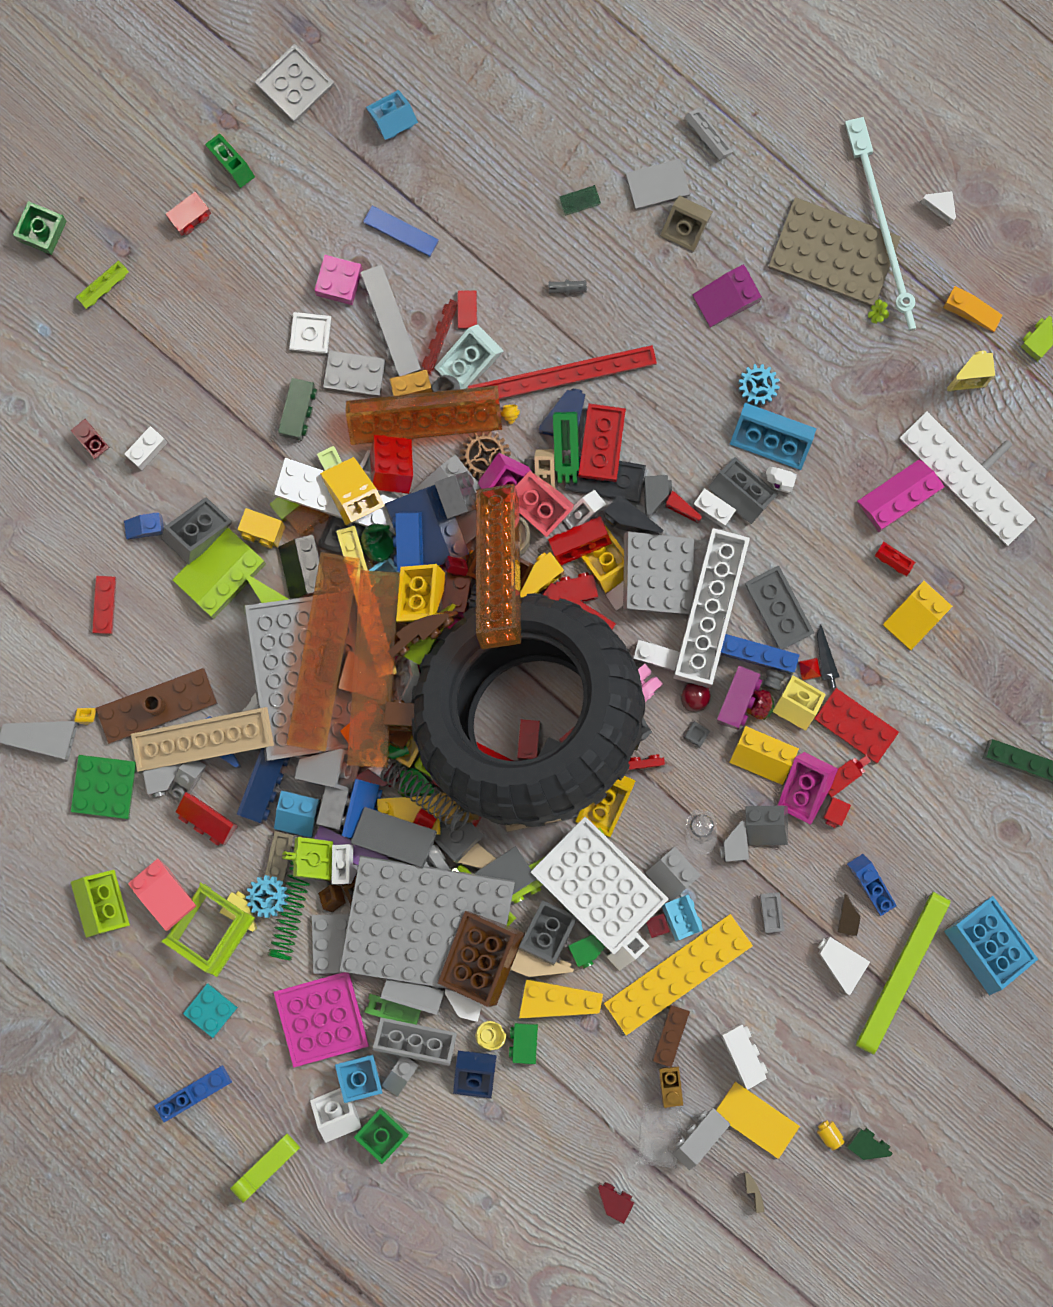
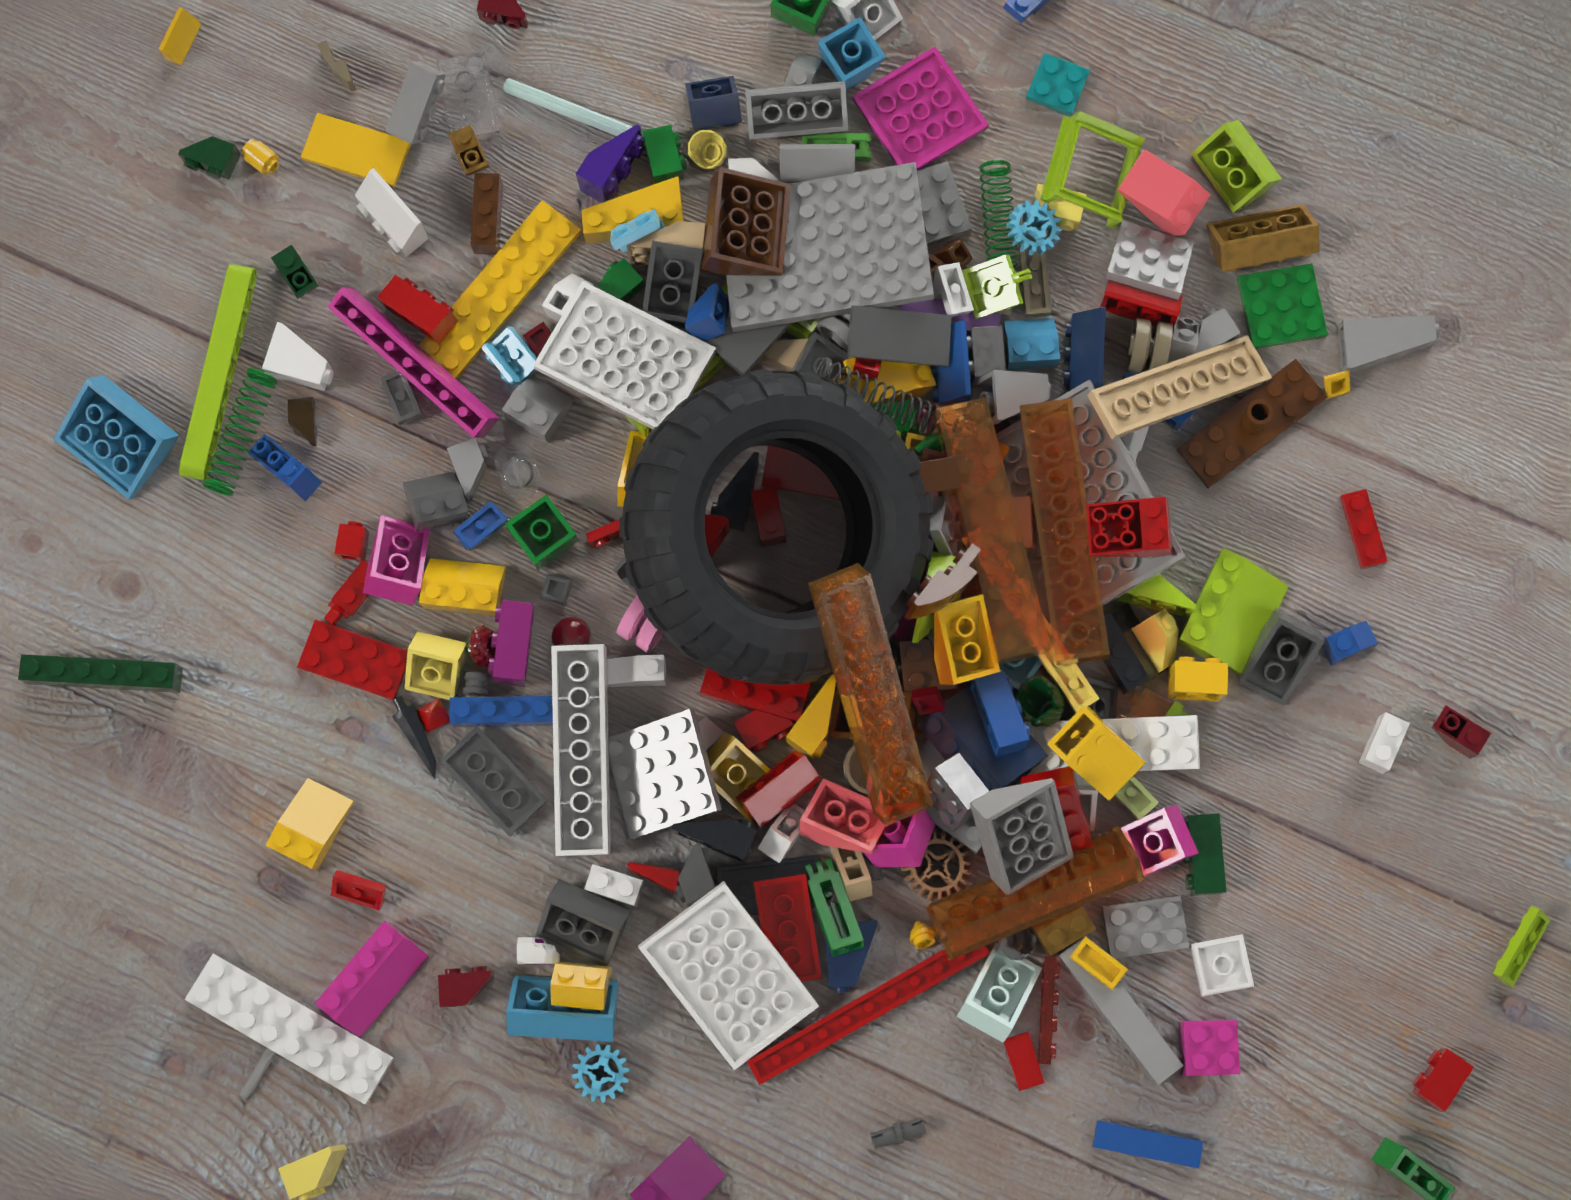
camera: 165 degrees right, 5 degrees down
(99, 842) = (1263, 237): none -> pearl gold slope
(189, 847) = (1150, 260): none -> light grey plate
(213, 779) = (1147, 347): none -> dark tan wheel
(277, 636) = (1129, 528): none -> red slope
(278, 567) = (1158, 638): none -> light yellow slope
(325, 425) = (1160, 839): none -> dark pink brick
(395, 354) = (1098, 963): none -> yellow tile
(421, 451) = (1021, 832): none -> light grey slope
(528, 900) = (708, 314): none -> blue slope
(563, 980) = (635, 229): none -> medium azure bracket
(571, 1042) = (610, 164): none -> dark purple slope
(584, 1102) = (564, 107): none -> light aqua axle
(652, 420) = (728, 975): none -> white plate
(696, 776) = (542, 532): none -> green brick
(739, 795) = (480, 526): none -> blue plate
(741, 974) = (418, 308): none -> red brick
(756, 446) = (580, 985): none -> yellow slope
(756, 934) = (413, 362): none -> dark pink brick
(826, 1030) = (294, 271): none -> dark green slope
(839, 470) = (462, 988): none -> dark red slope
(868, 1254) = (179, 36): none -> yellow slope
(919, 878) = (269, 382): none -> green piece

